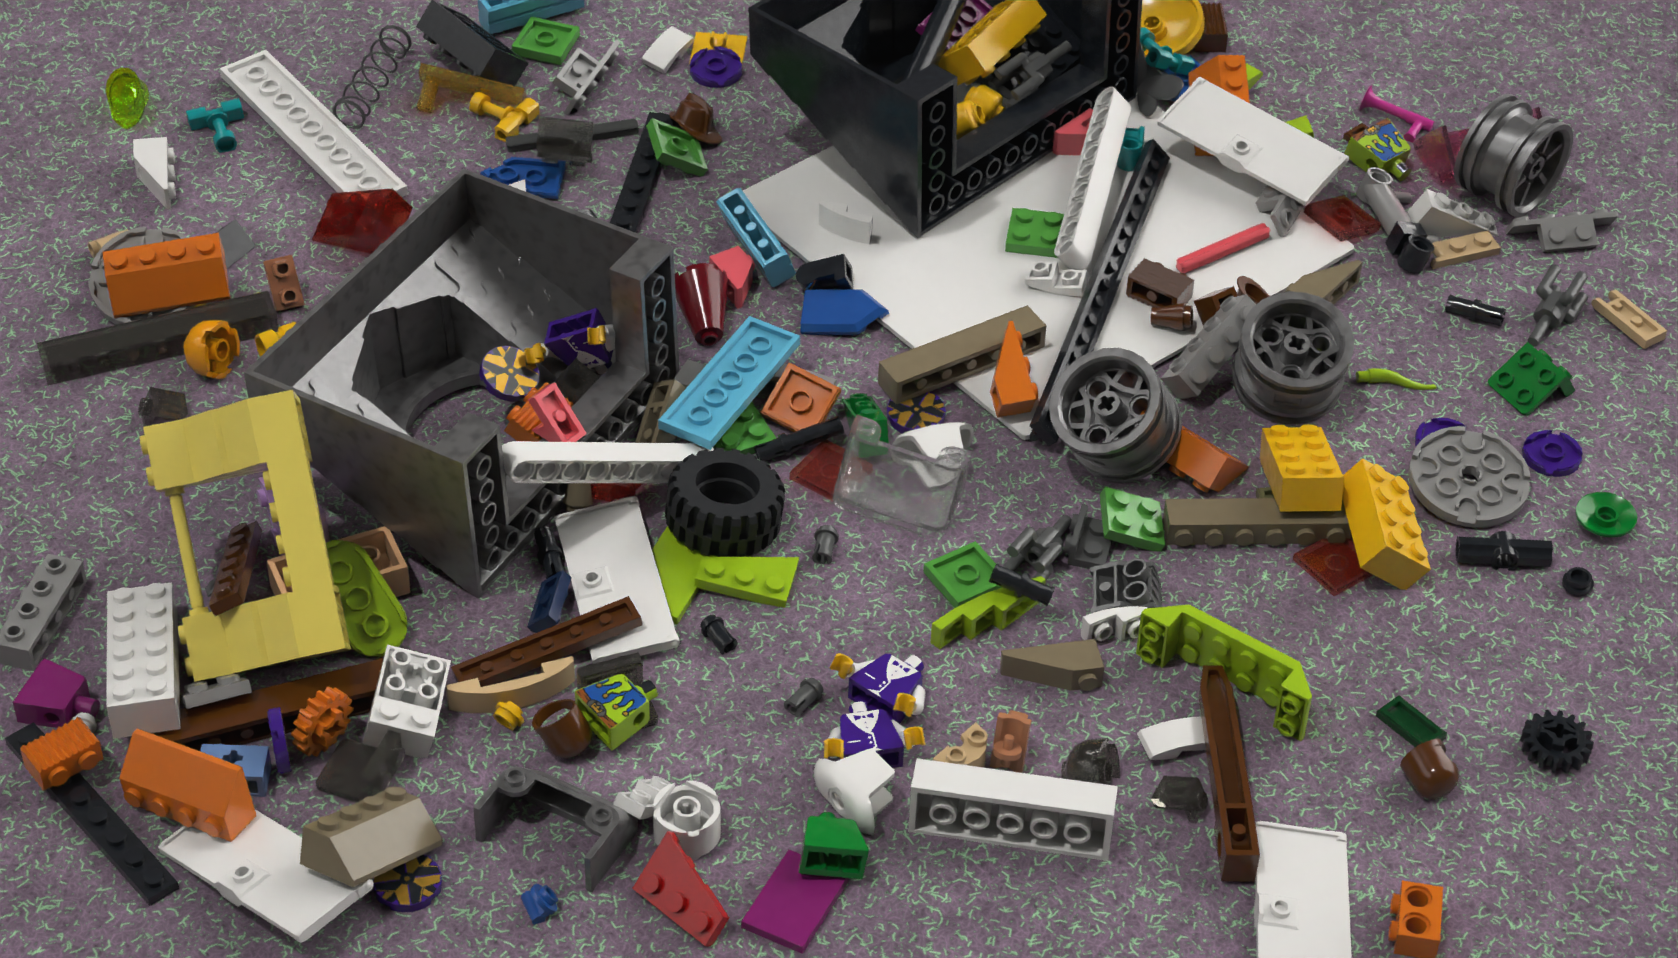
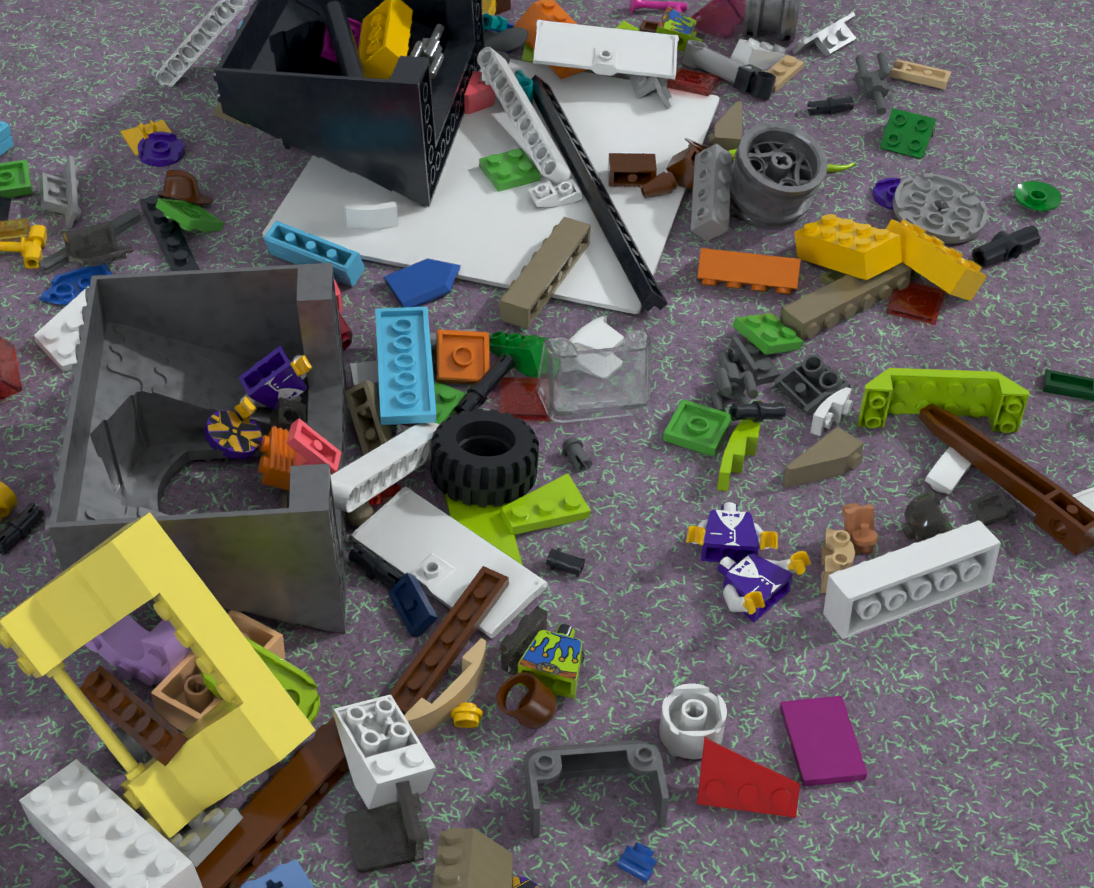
camera: 35 degrees left, 0 degrees up
(279, 740) = (302, 845): dark purple tile -> none
(322, 721) = (325, 809): orange gear -> none
(641, 799) = (641, 721): white slope -> none
(666, 49) = (112, 150): white slope -> none
(809, 690) = (674, 571): dark grey pin -> none
(826, 273) = (392, 258): black leg -> none
(833, 848) = (817, 680): green torso -> none
(856, 786) = (788, 625): white piece -> none
(916, 412) = (548, 325): tile -> none
(1011, 383) = (601, 271): orange slope -> none
(1104, 399) = (708, 232): flat silver wheel -> none
(1222, 248) = (643, 128): coral axle -> none
(1549, 460) = (966, 171): dark purple tile -> none
(1578, 581) = (1064, 245): black plate -> none

